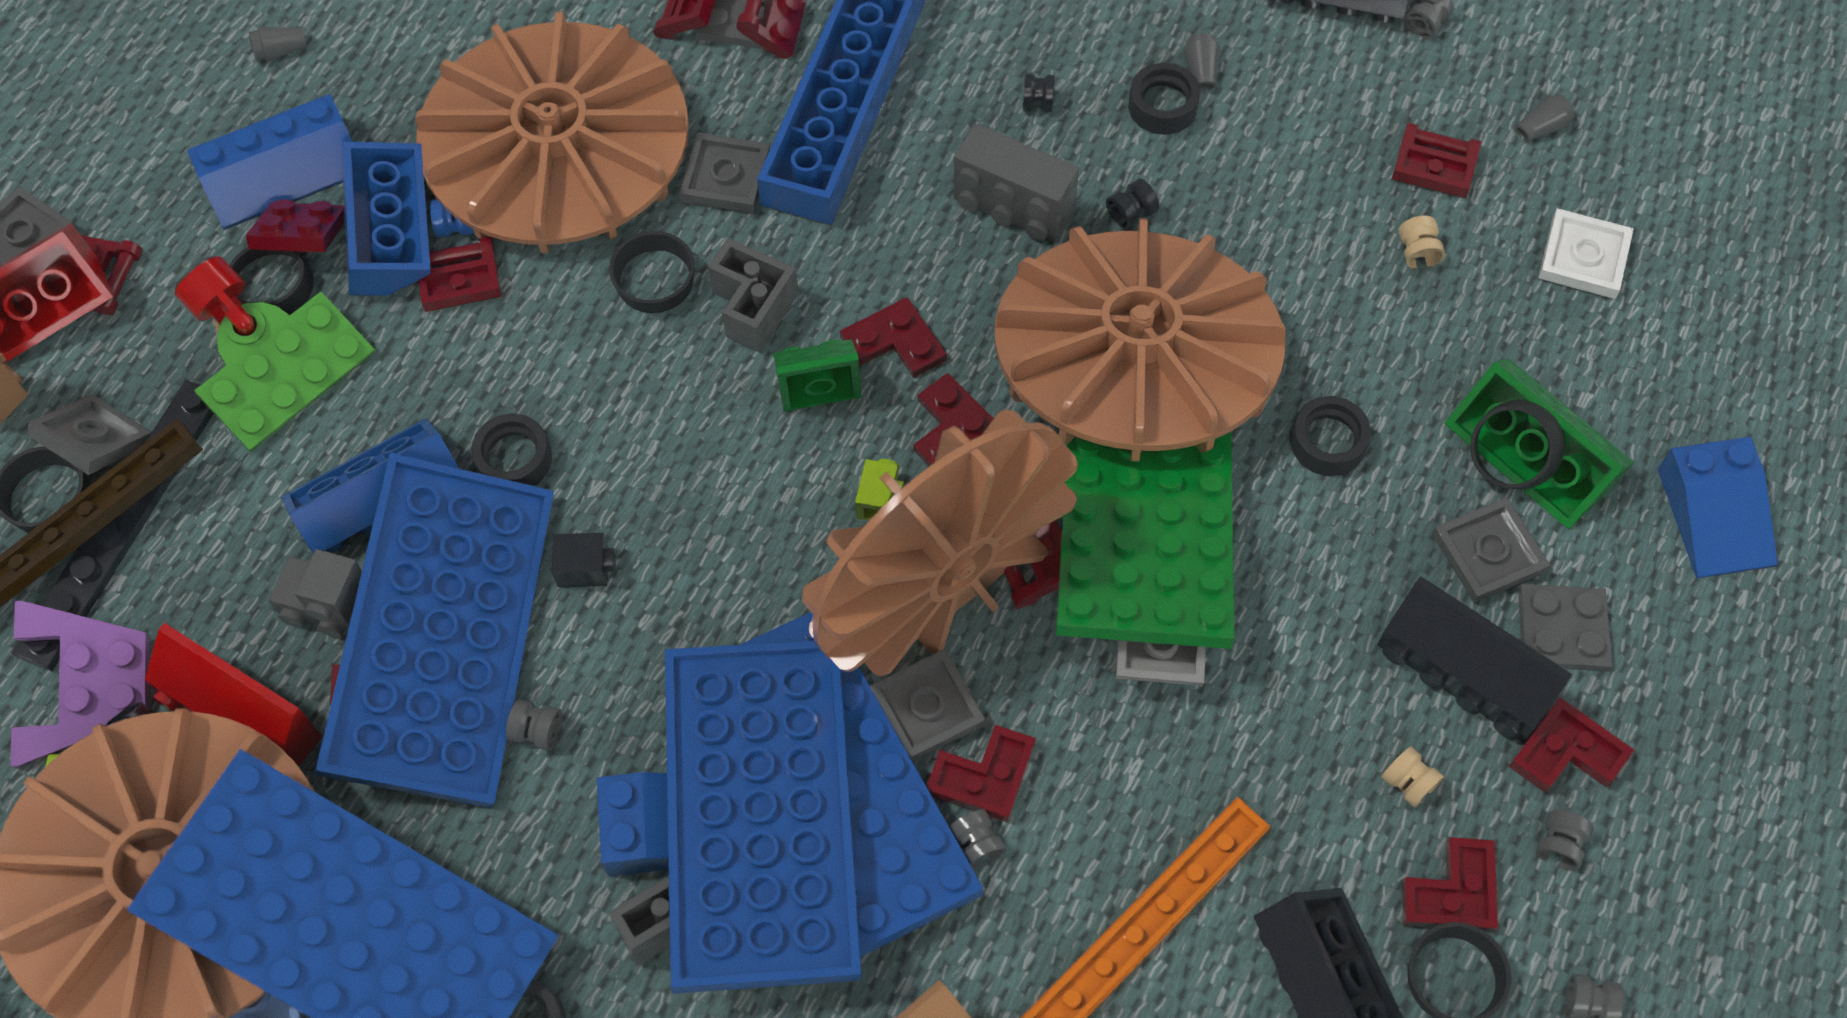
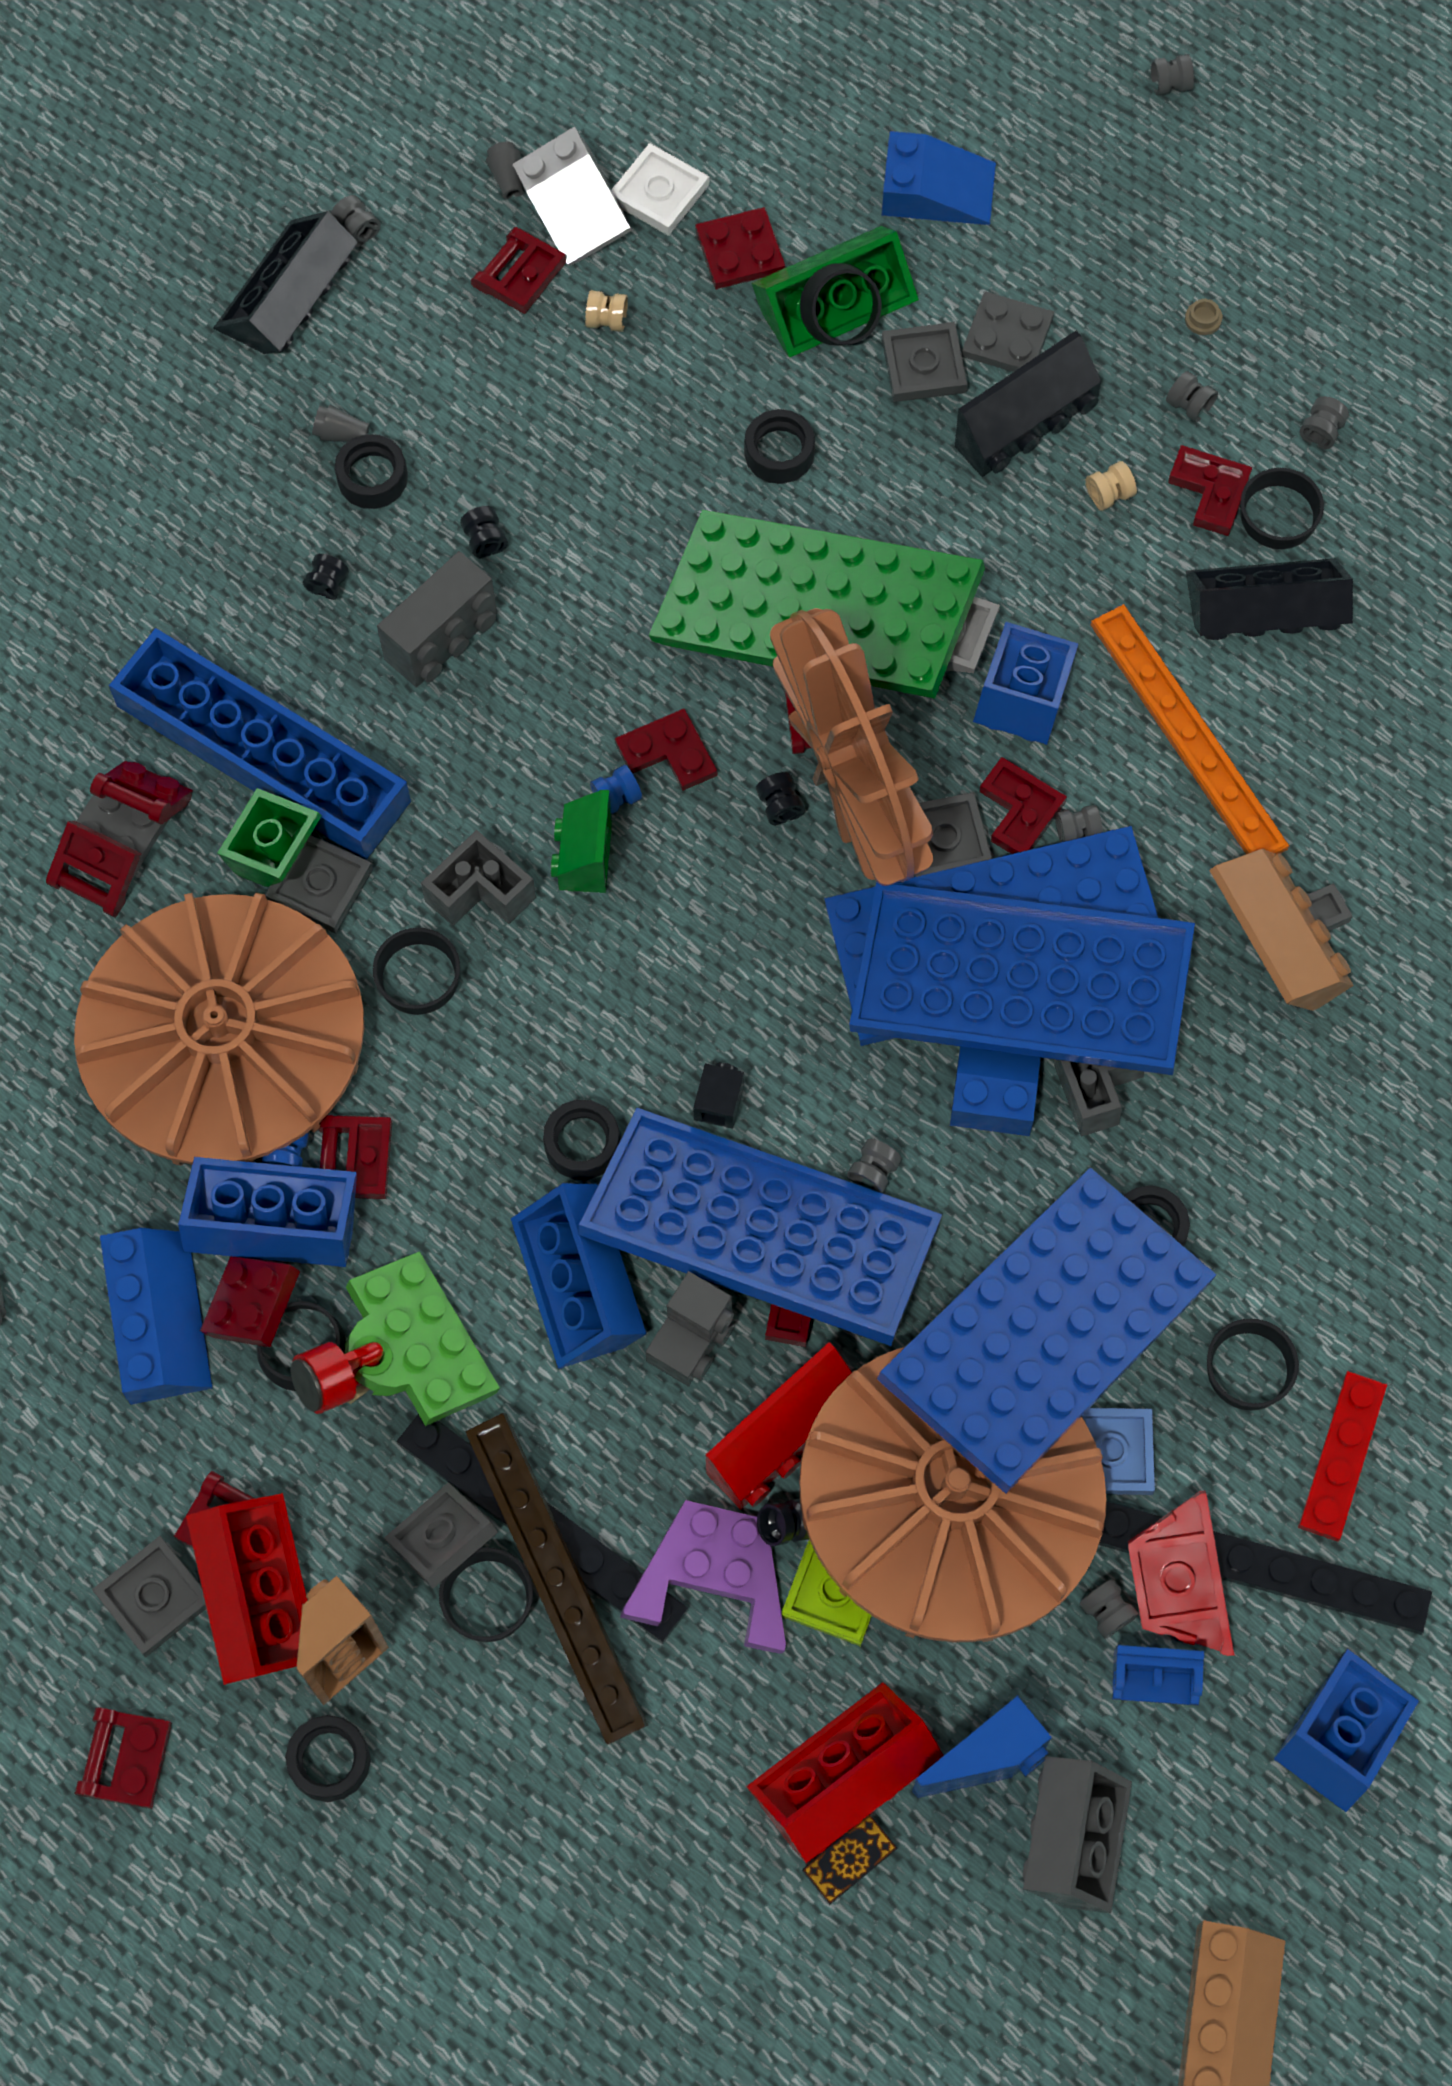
camera: 75 degrees left, 5 degrees up
(744, 110) = (267, 838): none -> green slope
(872, 491) = (724, 824): lime brick -> none
(886, 384) = (621, 786): none -> blue wheel
(898, 329) = (551, 769): dark red plate -> none
(1136, 742) = (1025, 683): none -> blue slope
(1139, 340) = (648, 559): nougat piece -> none
(1537, 175) = (572, 196): none -> slope
(1552, 344) = (739, 248): none -> dark red plate
(1570, 737) = (1113, 359): dark red plate -> none
(1678, 832) = (1203, 317): none -> dark tan plate

